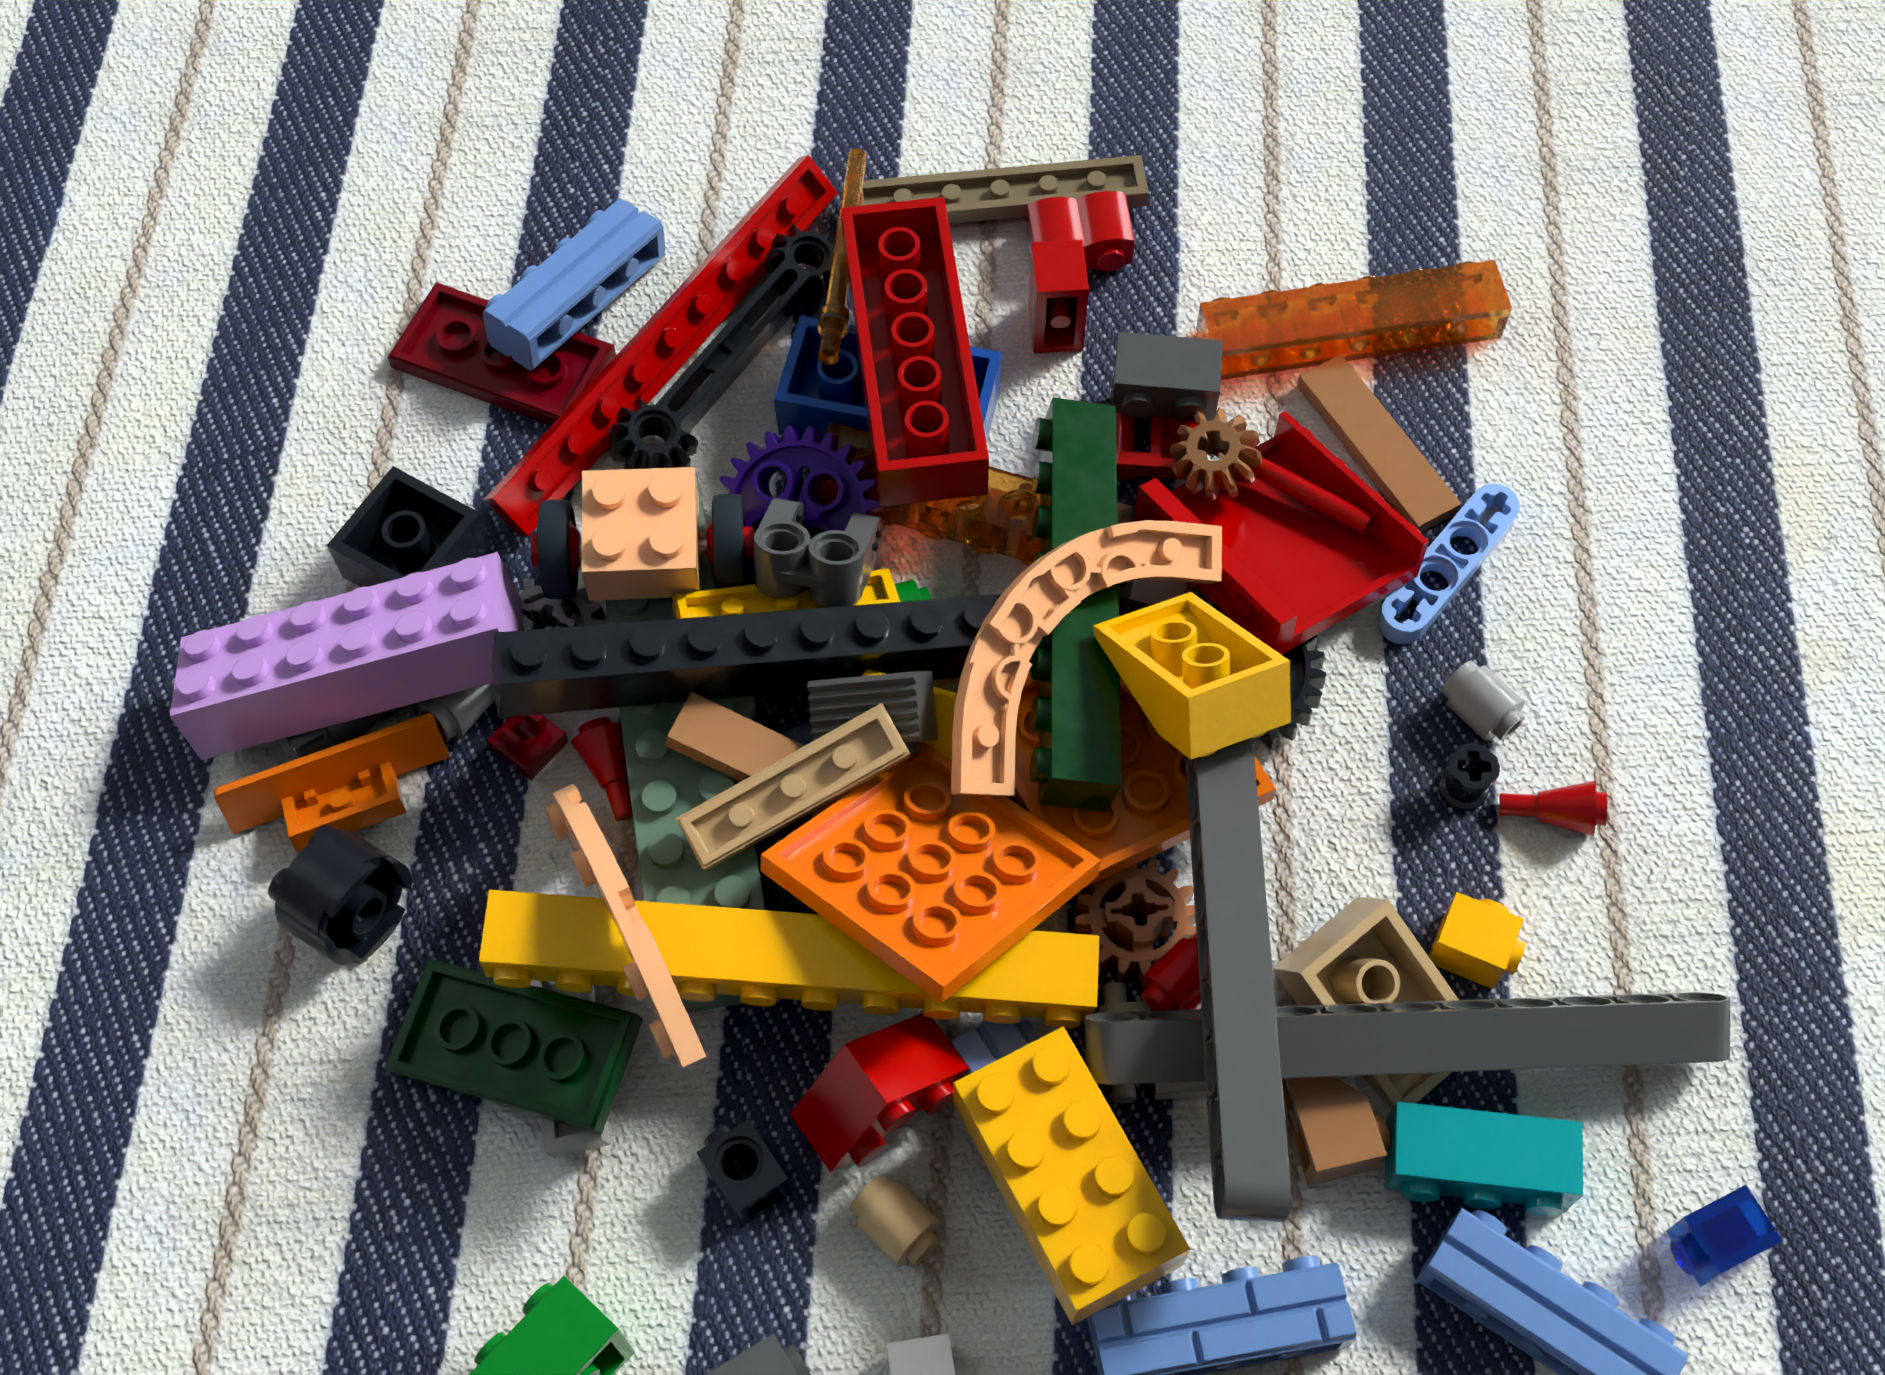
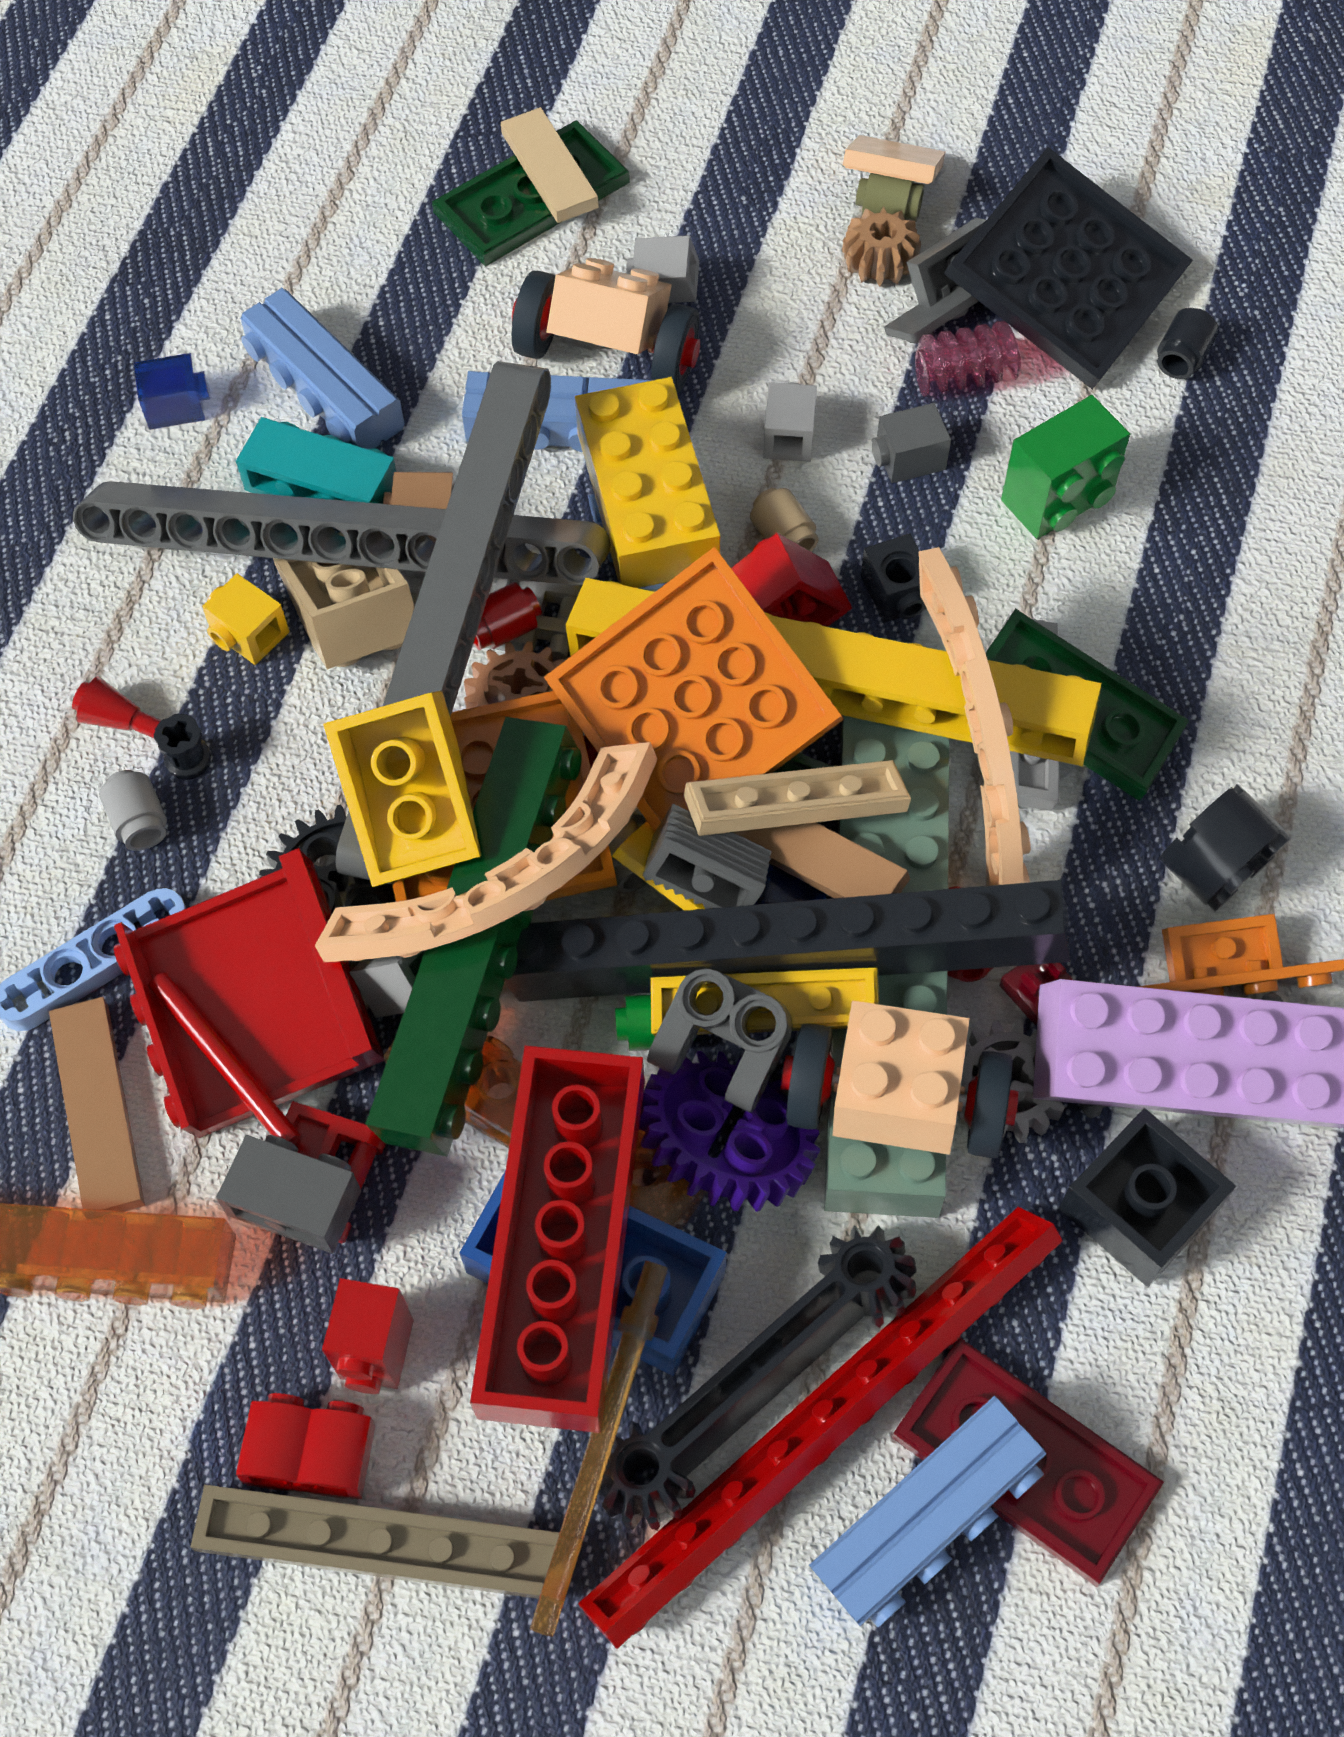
camera: 165 degrees left, 0 degrees up
(1213, 435) = (265, 1054): medium nougat gear -> none

